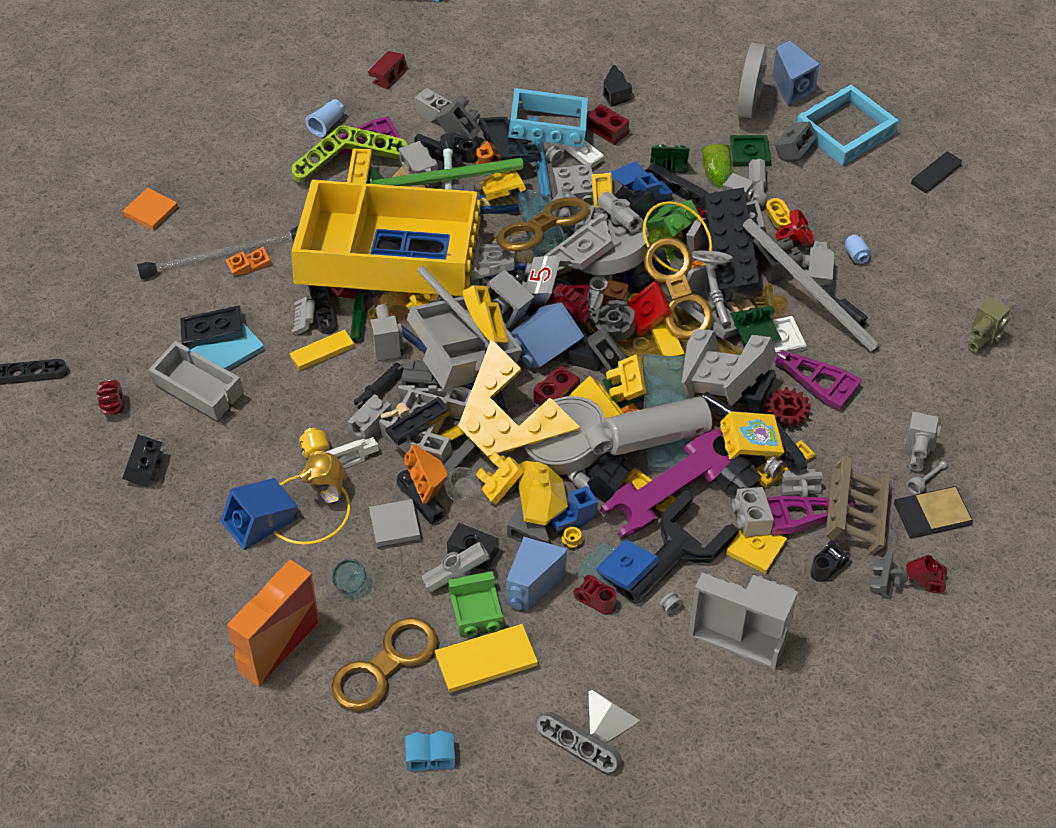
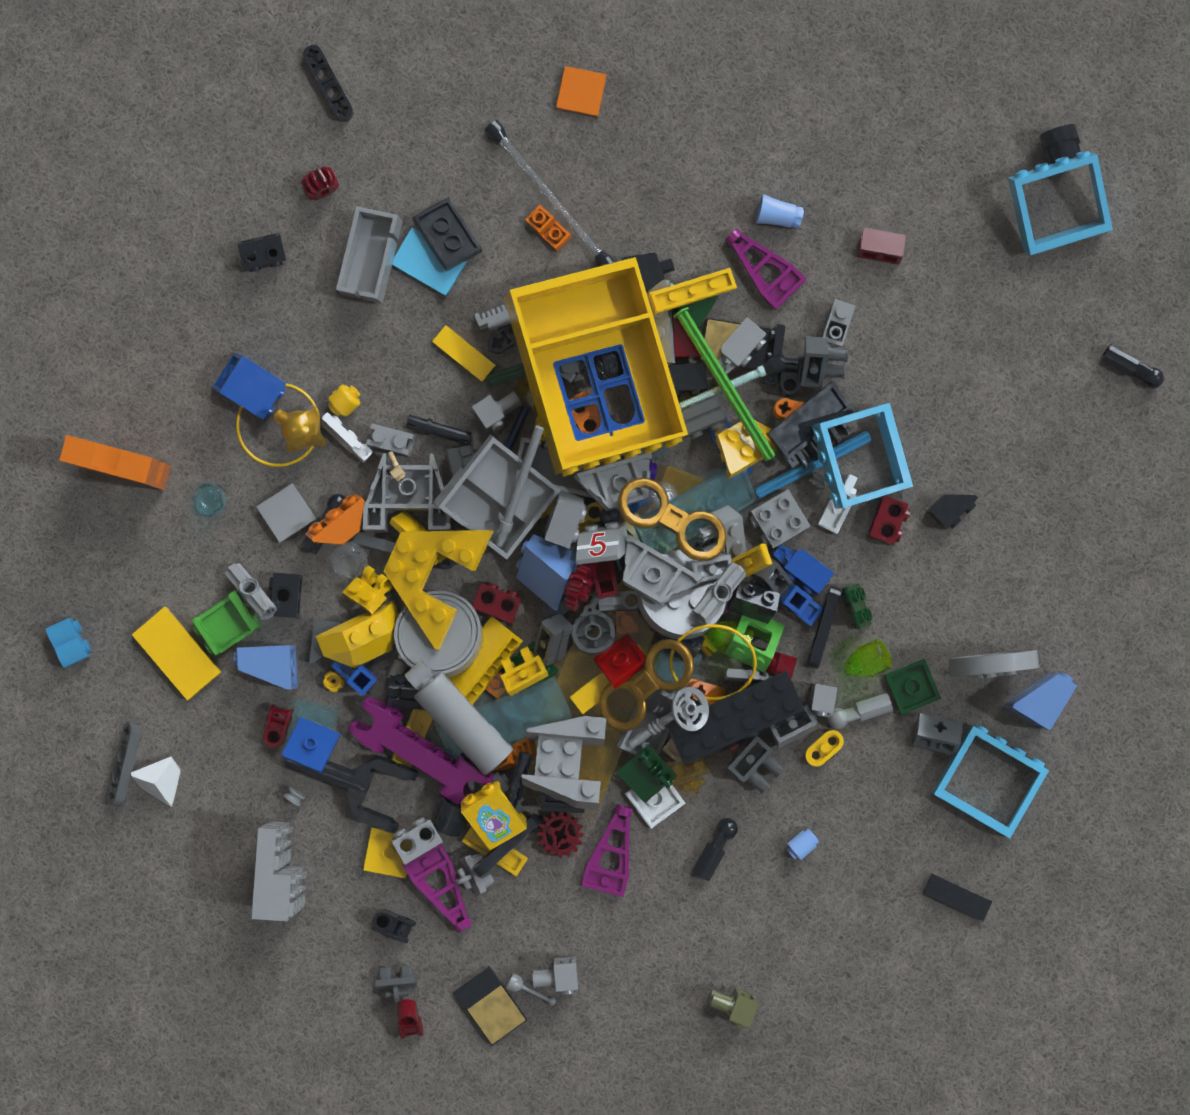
camera: 70 degrees right, 35 degrees up
(349, 143) = (739, 260): lime beam -> none
(384, 664) = (140, 566): pearl gold bar -> none
(418, 421) = (392, 492): black tile -> none
(485, 313) = (527, 509): yellow slope -> none
(773, 467) = (475, 843): light grey bush -> none
(796, 229) = (802, 778): red tile -> none
(820, 263) = (762, 812): light grey hinge -> none
(826, 300) = (712, 813): light grey axle -> none
(840, 507) = (455, 917): dark tan fence -> none

